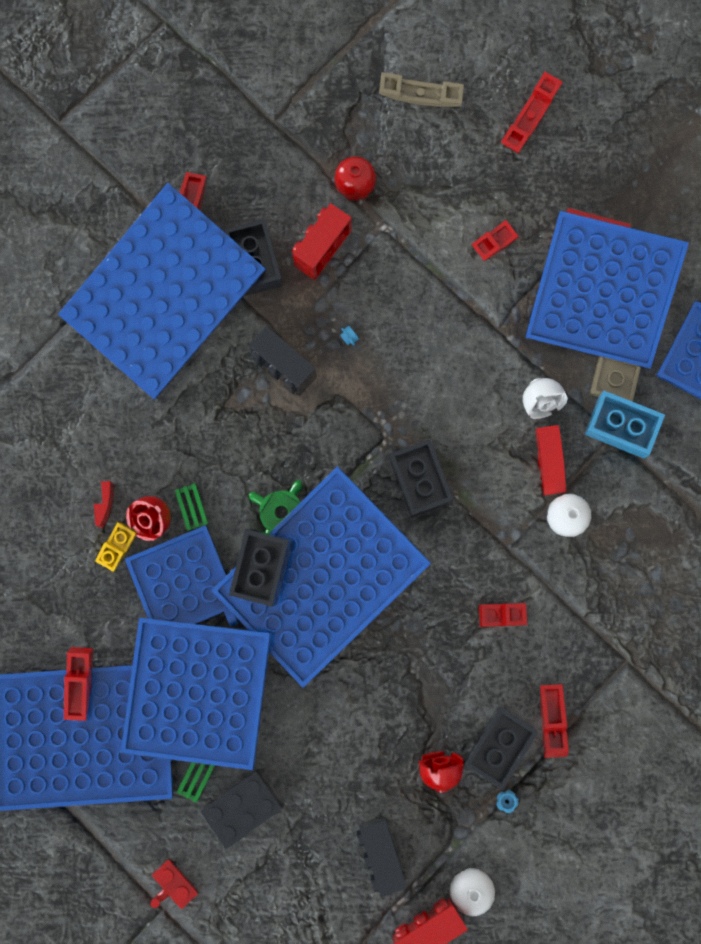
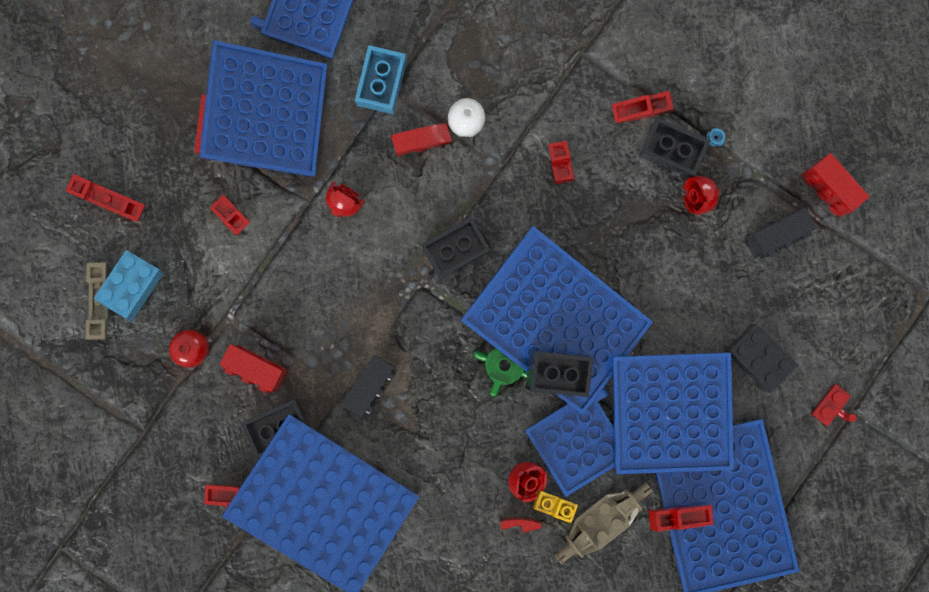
camera: 100 degrees left, 5 degrees up
(88, 596) = (603, 522): none -> dark tan plate
(186, 489) = (514, 452): green tile -> none
(187, 794) = (755, 406): green tile -> none
(349, 336) = (336, 331): dark azure plate -> none
(431, 123) = (128, 286): none -> dark azure brick
(472, 892) = (794, 155): white cylinder -> none
(493, 363) = (343, 200): none -> red cylinder
(542, 397) = (366, 153): white cylinder -> none
(615, 377) = (340, 93): dark tan tile -> none

